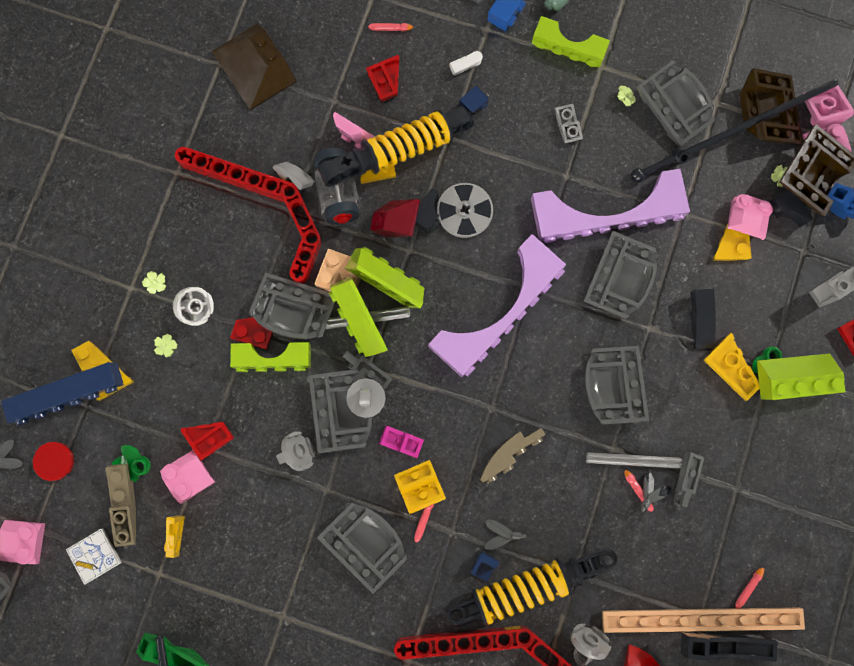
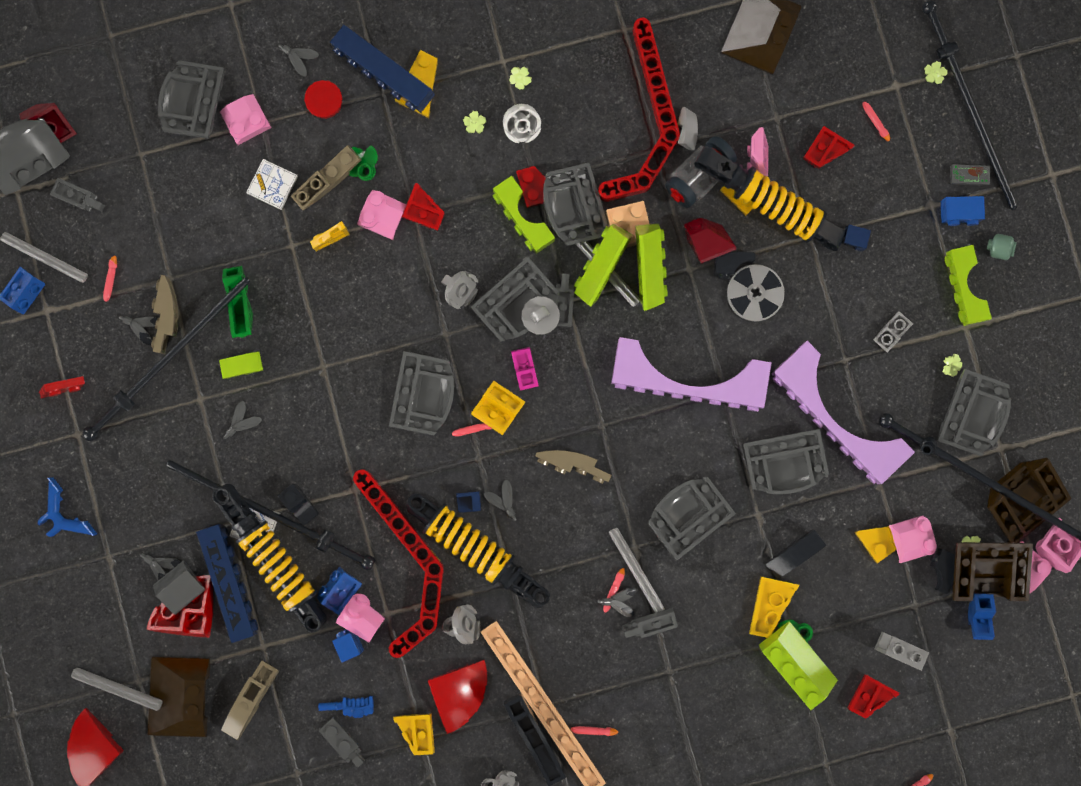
camera: 55 degrees right, 5 degrees up
(464, 63) = (887, 208): white bar -> none

